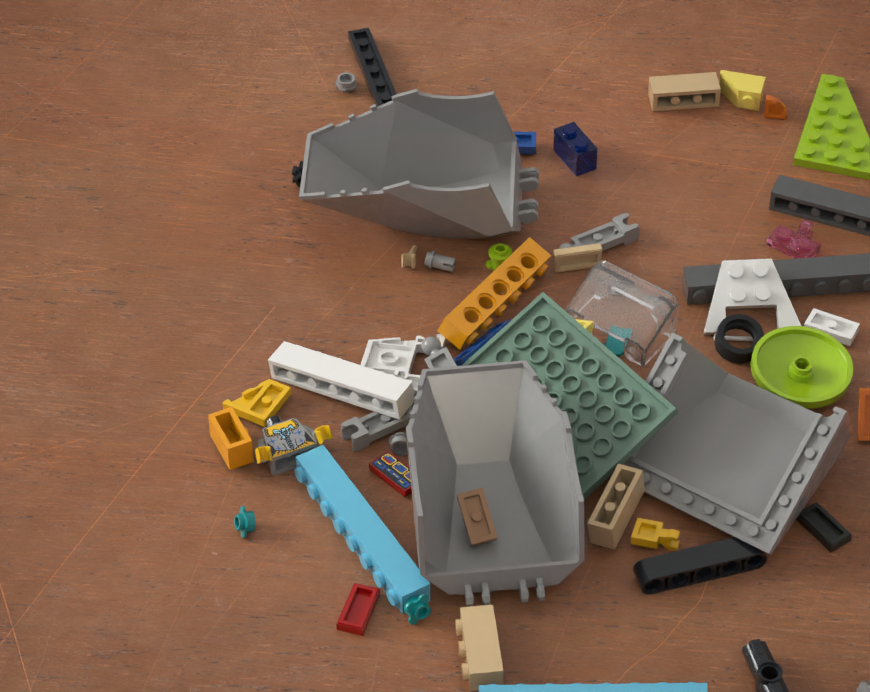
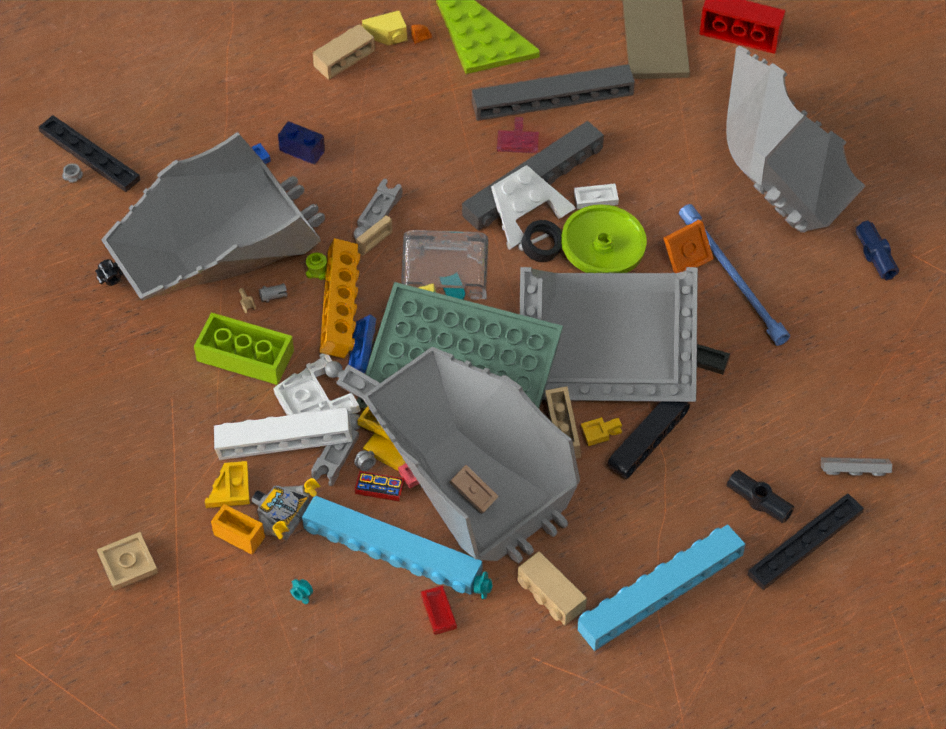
camera: 35 degrees left, 10 degrees up
(115, 416) = (127, 561): none -> tan plate
(369, 292) = (244, 348): none -> lime brick

